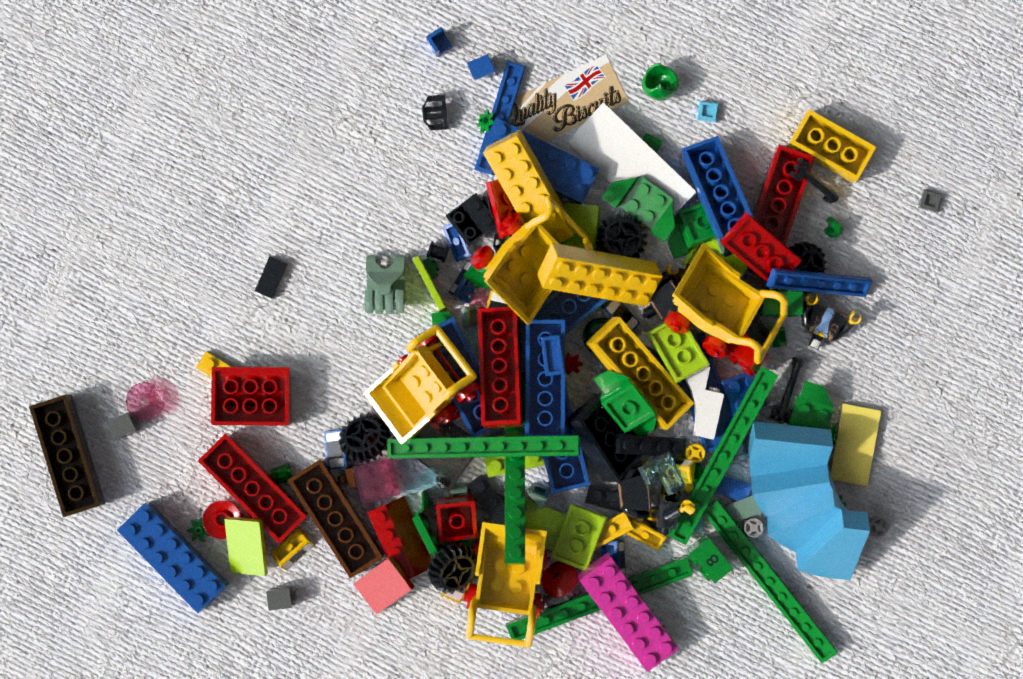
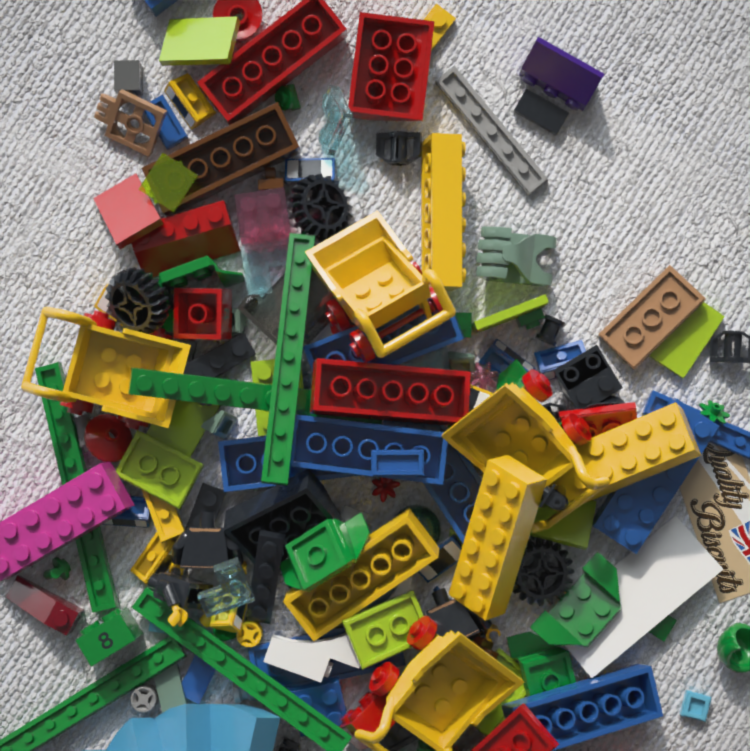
camera: 100 degrees right, 0 degrees up
(242, 266) = (560, 74): none -> dark purple slope
(289, 314) = (491, 130): none -> light grey tile
(295, 432) = (338, 119): none -> clear light blue plate
(309, 609) = (113, 114): none -> medium nougat piece
(310, 383) = (399, 146): none -> black piece
(311, 566) = (171, 131): none -> blue tile
(355, 344) = (442, 208): none -> yellow brick
(358, 556) = (168, 182): none -> clear neon green piece
(419, 176) = (652, 317): none -> medium nougat tile
(428, 151) = (688, 341): none -> lime tile
(566, 235) = (553, 498): none -> black hinge
(663, 603) = (60, 569): none -> green plate
(692, 612) = (45, 605): none -> dark red slope

